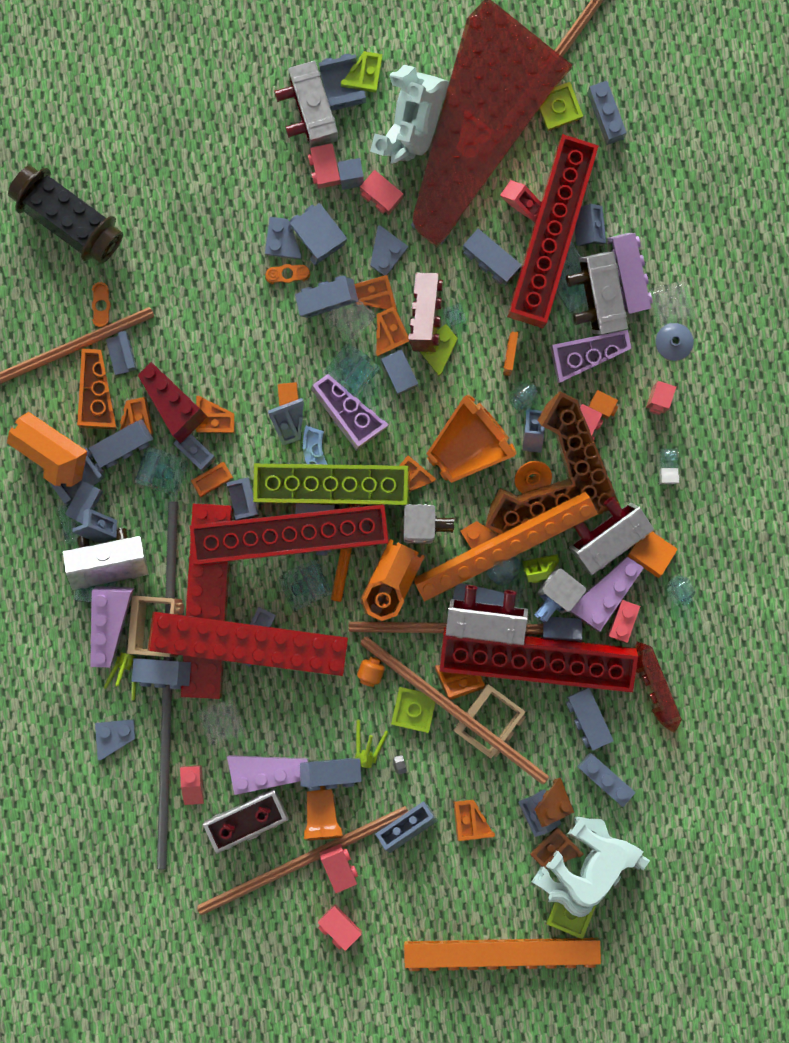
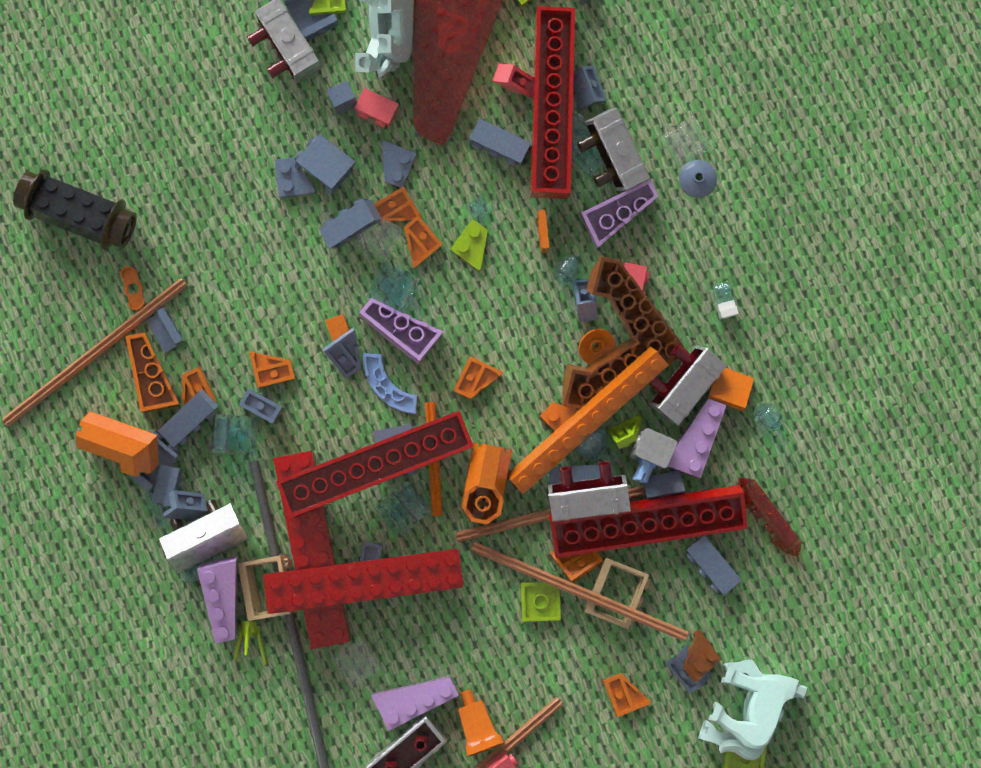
camera: 15 degrees left, 0 degrees up
(113, 736) = (255, 704): sand blue wing -> none
(161, 673) = (286, 631): sand blue brick -> none
(174, 406) = (231, 369): dark red wedge -> none
(192, 784) = (344, 731): coral slope -> none
(212, 479) = (285, 429): orange tile -> none
(242, 499) = (320, 440): sand blue panel -> none
(300, 272) = (318, 206): orange piece -> none
(325, 166) = (315, 97): coral brick -> none
(330, 773) = (476, 685): sand blue brick -> none
(331, 484) = (403, 403): lime brick -> none
(365, 756) = (506, 661): lime plant -> none
(370, 672) = (489, 575): orange head -> none
(399, 372) = (440, 277): sand blue panel -> none
(399, 764) = (540, 658): flat silver tile -> none
(406, 827) = (563, 717): sand blue brick -> none
(422, 524) = (501, 419): flat silver piece -> none
(425, 310) = (450, 212): wedge -> none
(469, 442) = (526, 328): orange cone -> none
(555, 842) = (712, 693): dark orange wing -> none
(604, 404) = (646, 257): orange brick -> none
(606, 779) = (744, 619): sand blue brick -> none
(623, 621) = (720, 462): coral brick -> none
(631, 272) = (638, 122): lavender wedge -> none
(660, 397) = (699, 236): coral brick -> none

